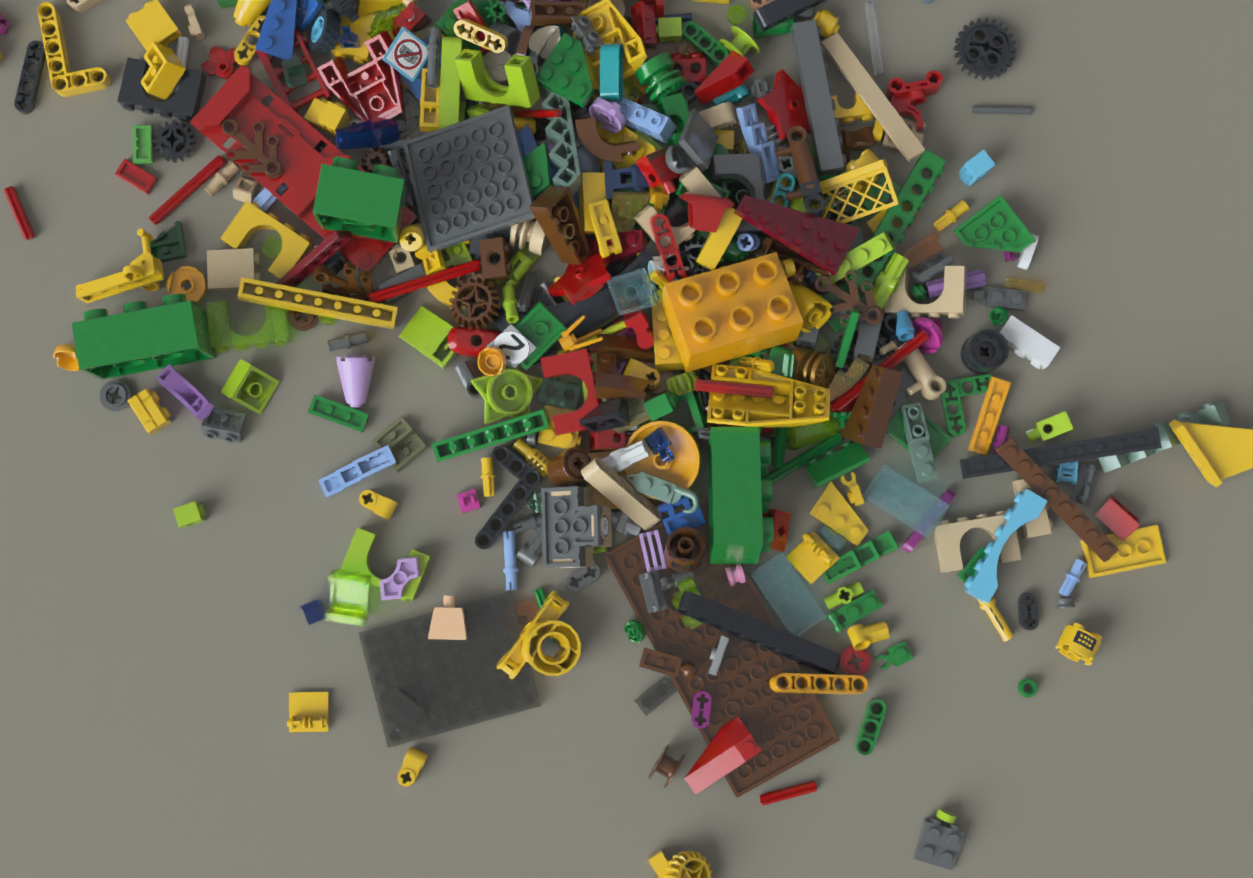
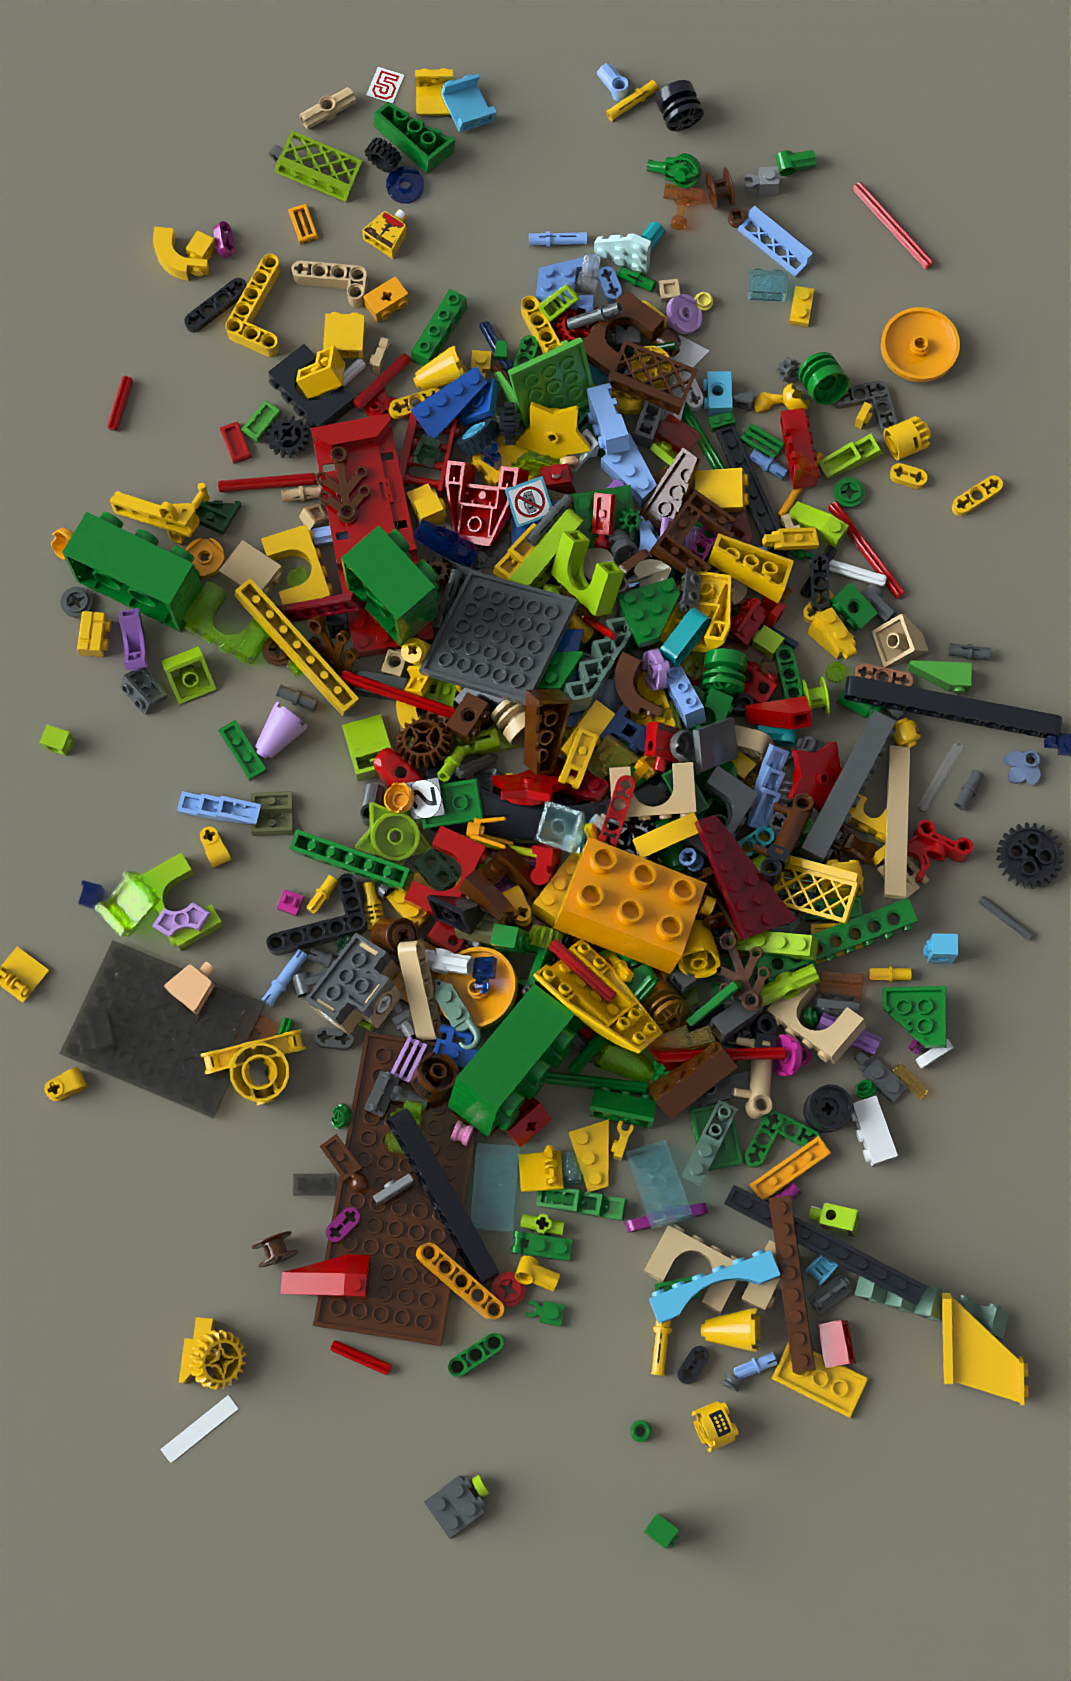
camera: 40 degrees right, 10 degrees down
(212, 41) = (382, 380): none -> red axle
(469, 25) = (593, 526): yellow beam -> none
(705, 211) = (672, 802): red piece -> none
(903, 32) = (969, 789): none -> dark grey pin
(904, 327) = (772, 1033): dark azure cone -> none
(1039, 564) = (734, 1330): none -> yellow cone
(1100, 748) = (662, 1531): none -> green brick

